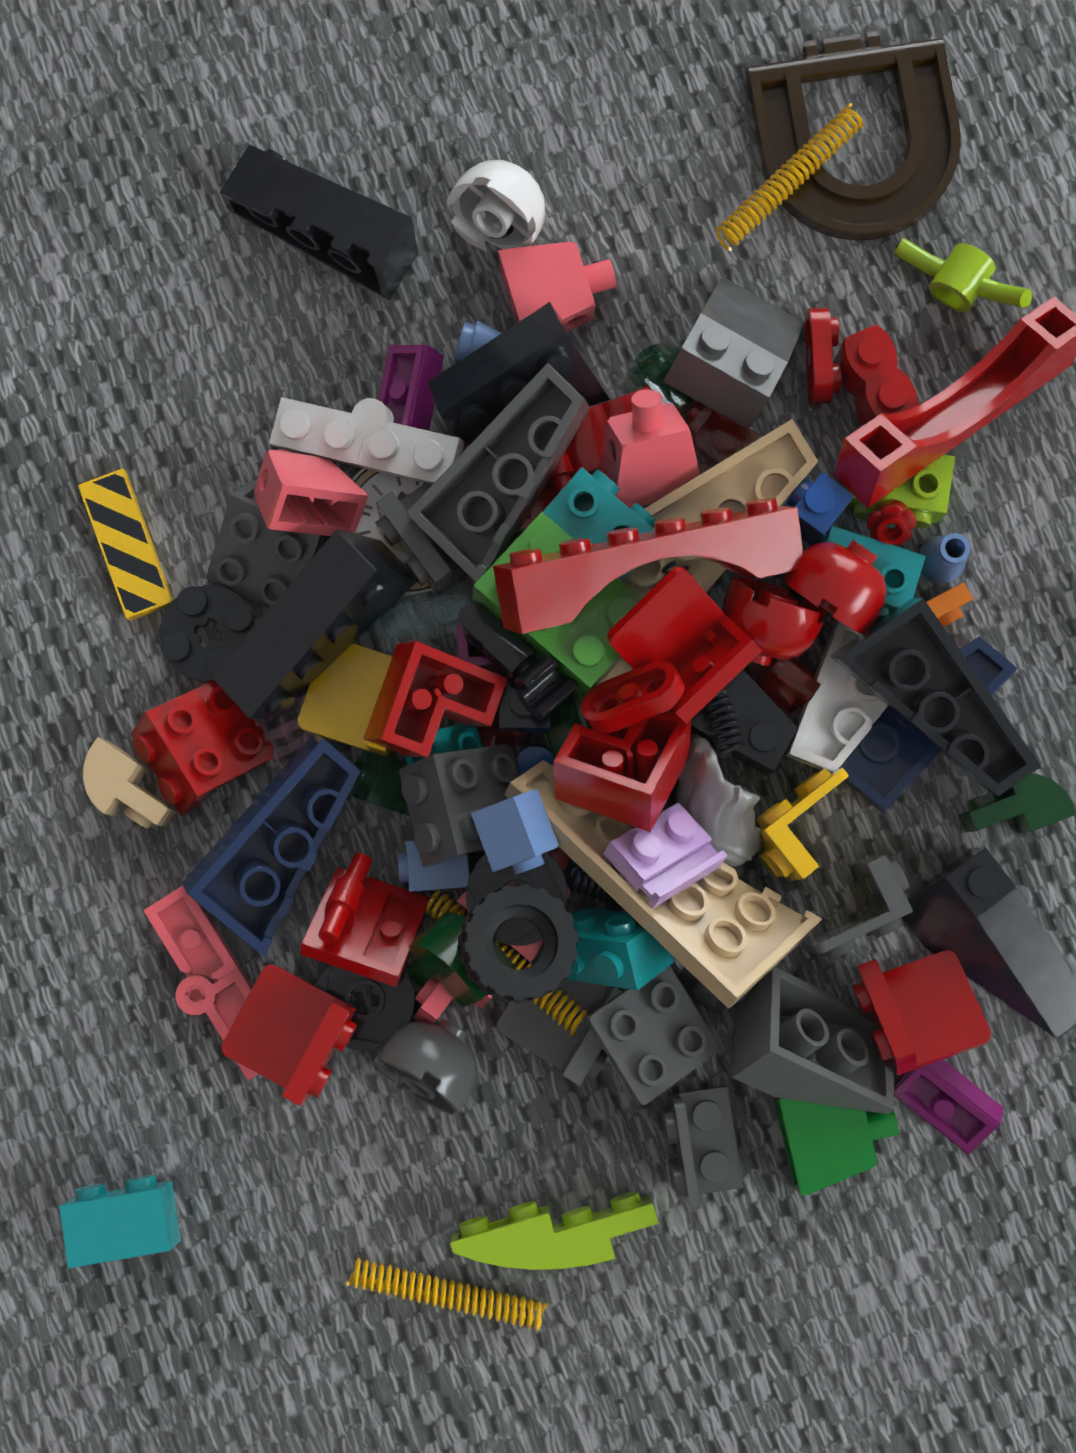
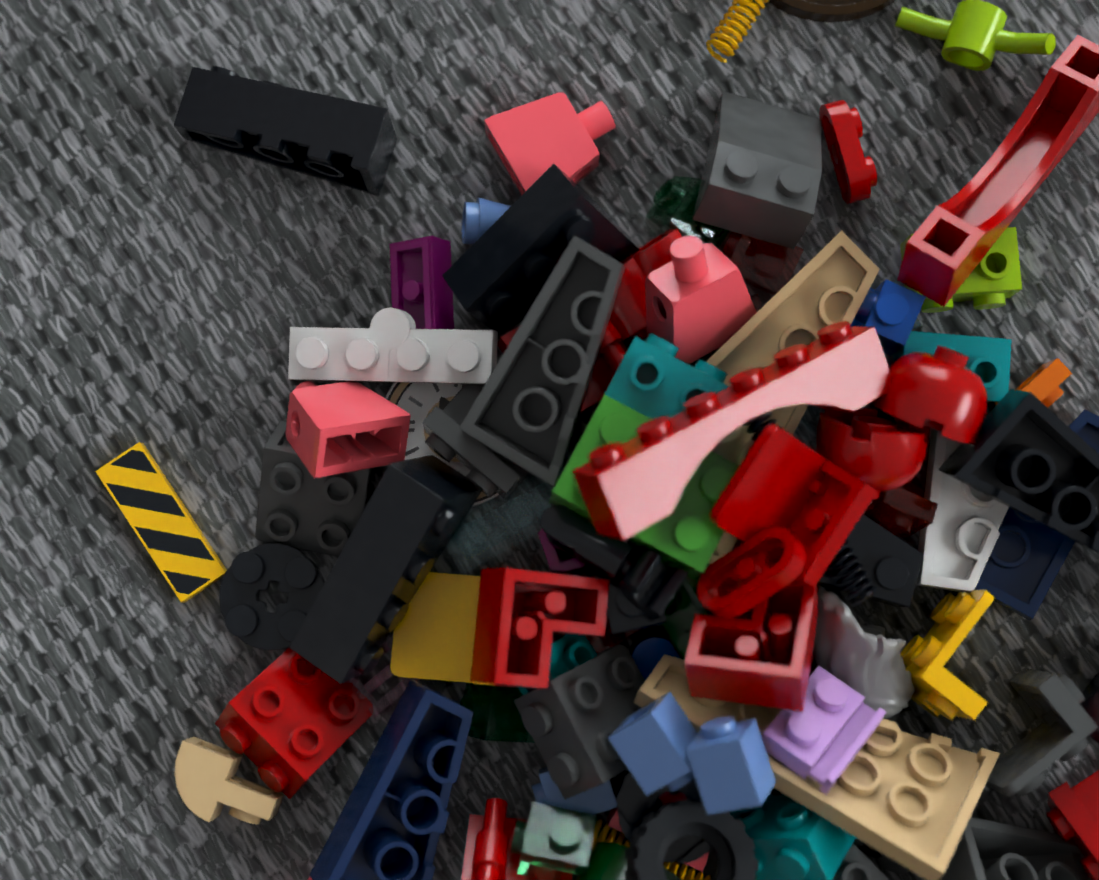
camera: 15 degrees left, 0 degrees up
(404, 899) = (554, 839): none -> bracket
(491, 200) = (463, 68): white cylinder -> none
(573, 860) = (730, 765): none -> medium blue brick
(872, 374) = (911, 164): red brick -> none
(887, 513) = (964, 303): red plate -> none
(938, 564) = (1026, 342): medium blue cone -> none

